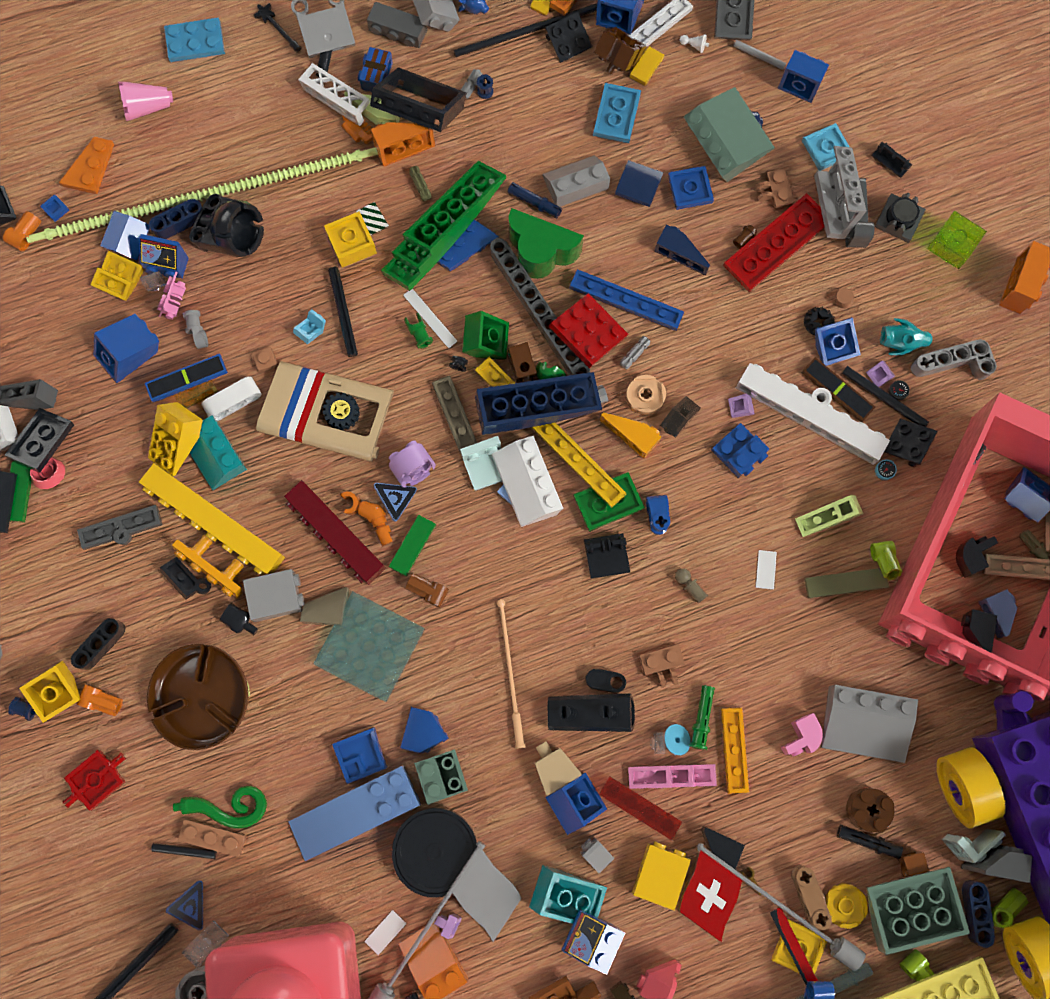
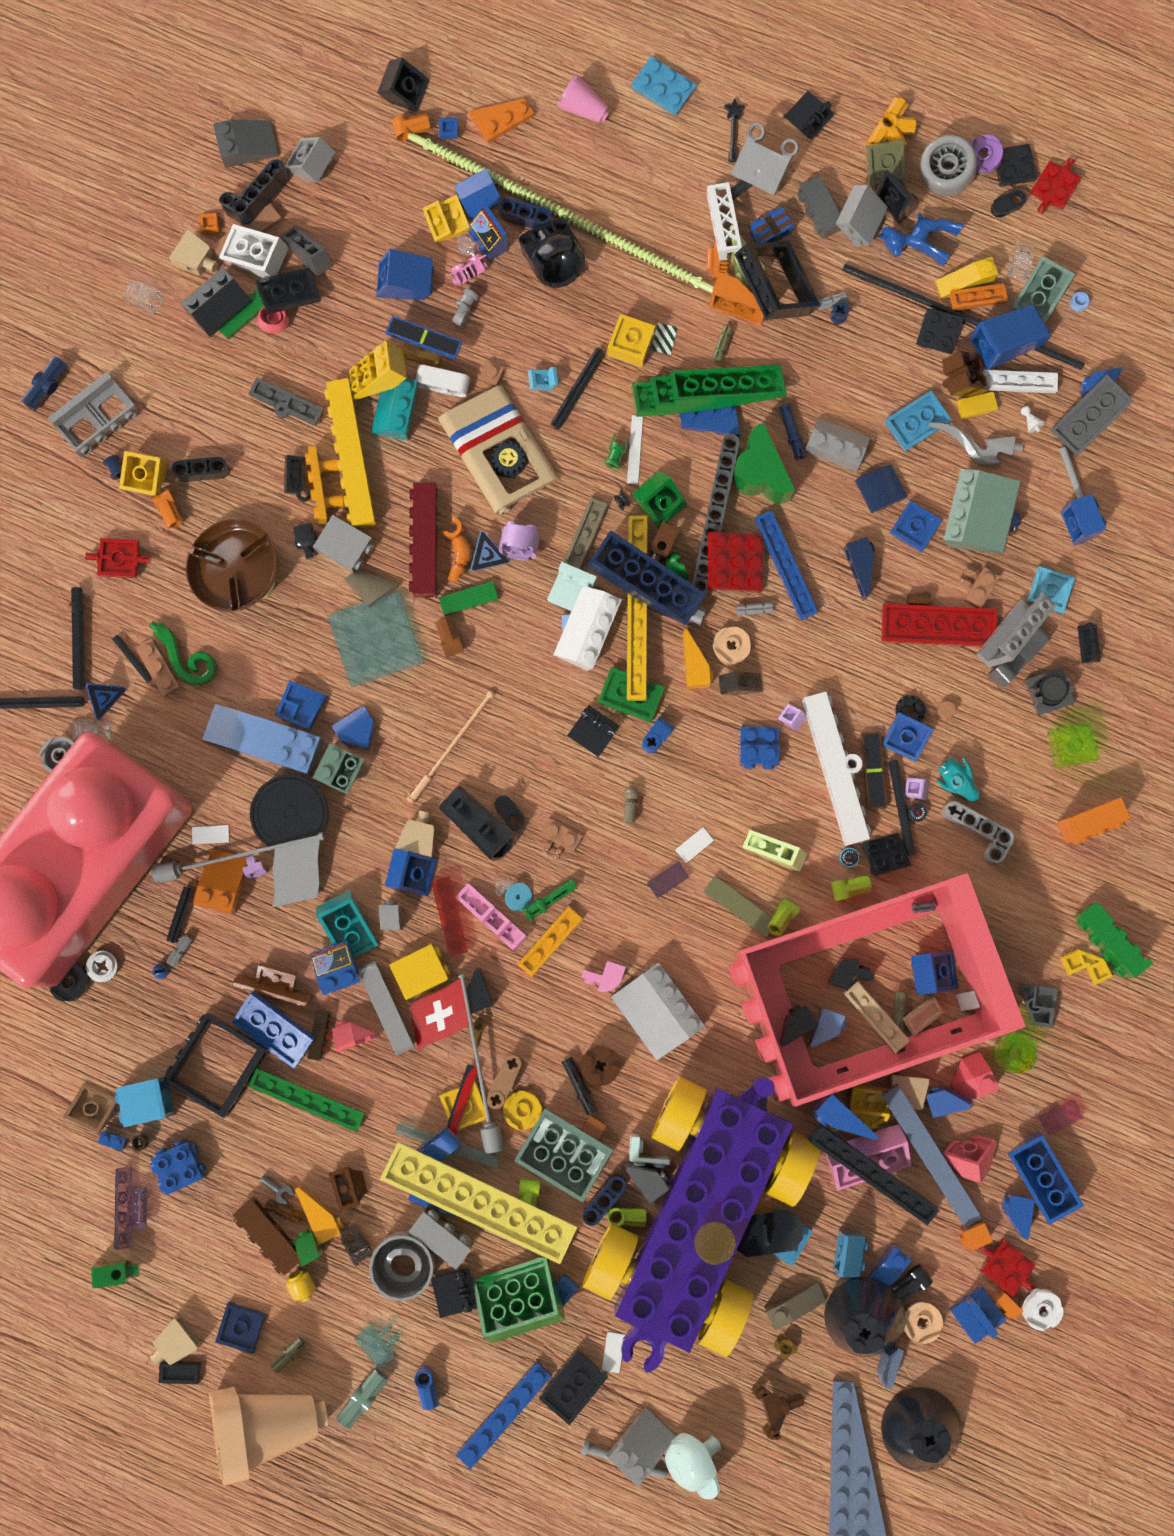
camera: 45 degrees right, 5 degrees up
(121, 878) = (77, 638): none -> black axle
(663, 932) = (386, 1008): none -> light grey beam
(687, 83) = (993, 446): none -> light grey piece
(774, 615) = (667, 880): none -> tile
(908, 494) = (847, 888): none -> lime piece

